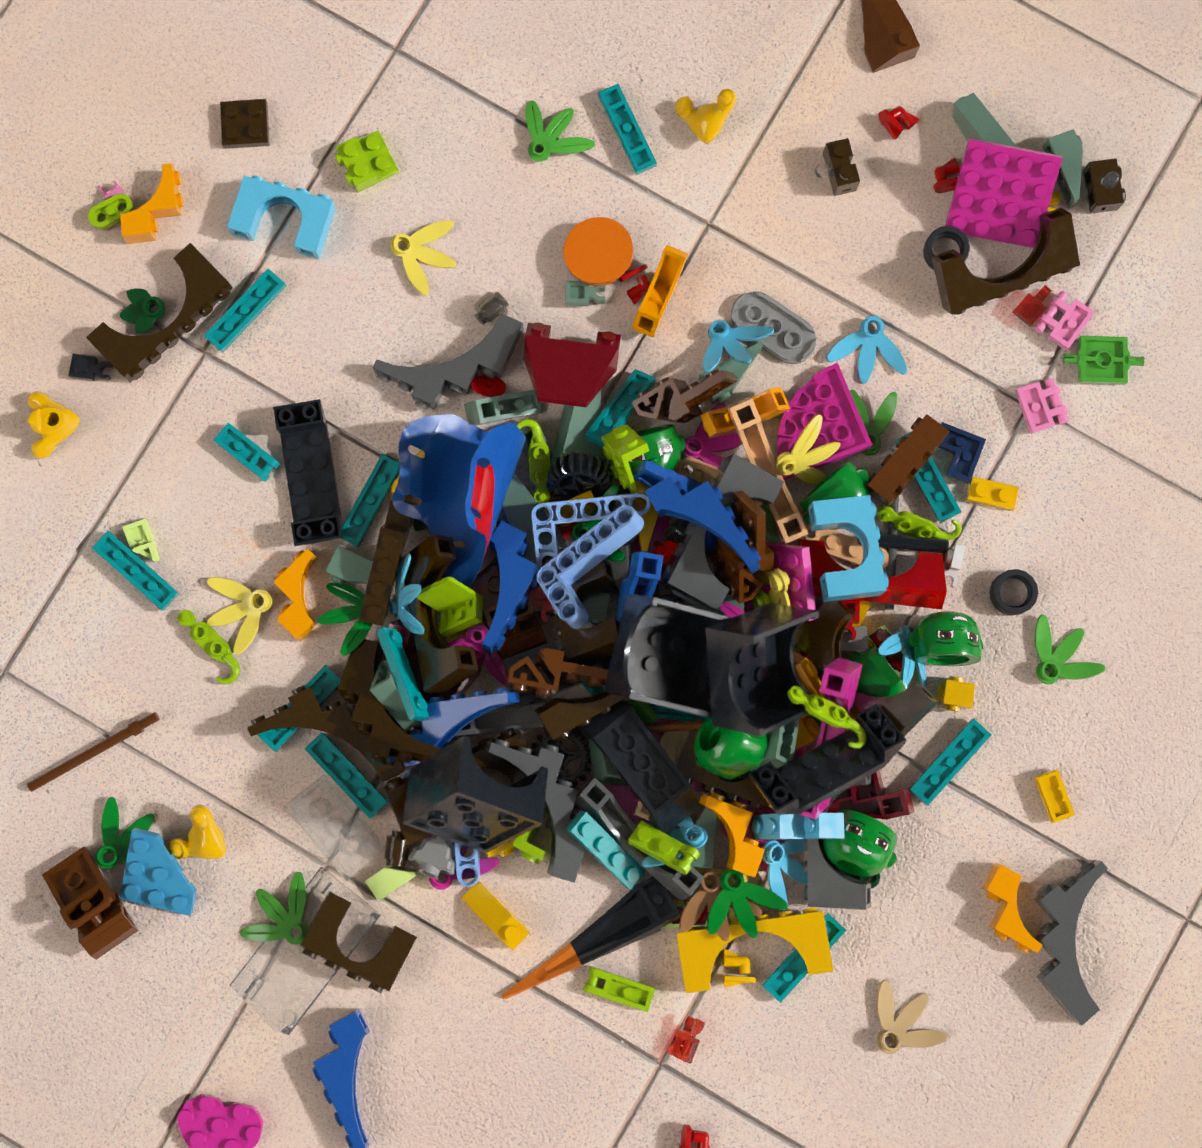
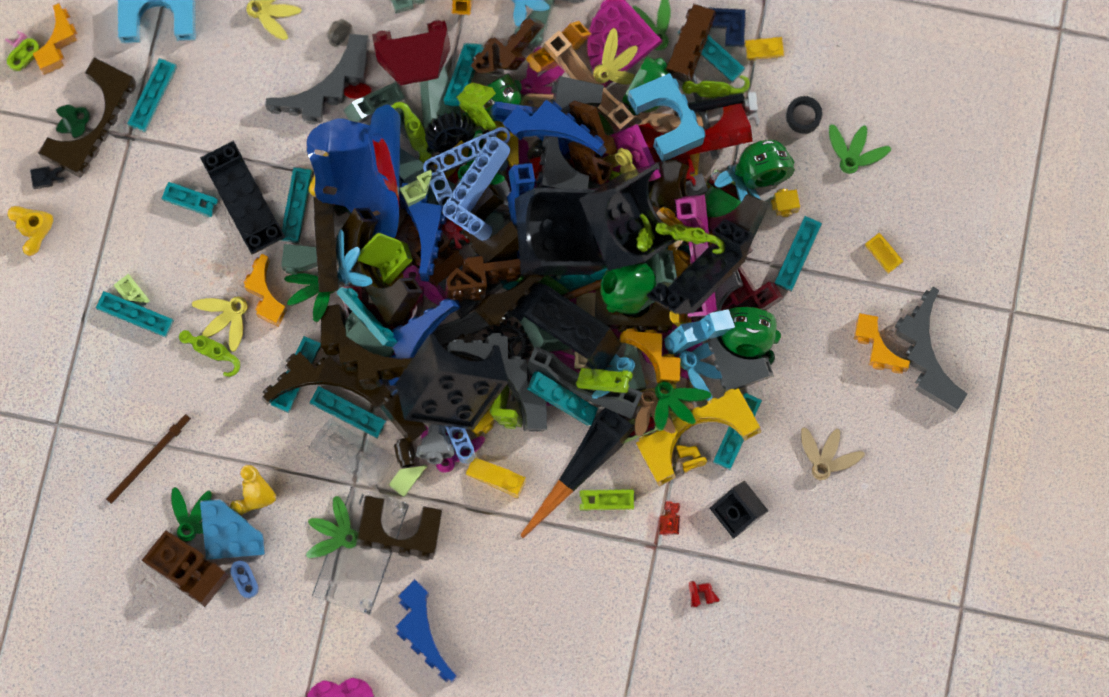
camera: 15 degrees left, 5 degrees down
(155, 938) = (244, 580): none -> medium blue plate
(516, 536) = (416, 190): none -> yellowish green slope
(773, 695) = (645, 236): none -> lime piece
(774, 1056) = (739, 509): none -> black slope

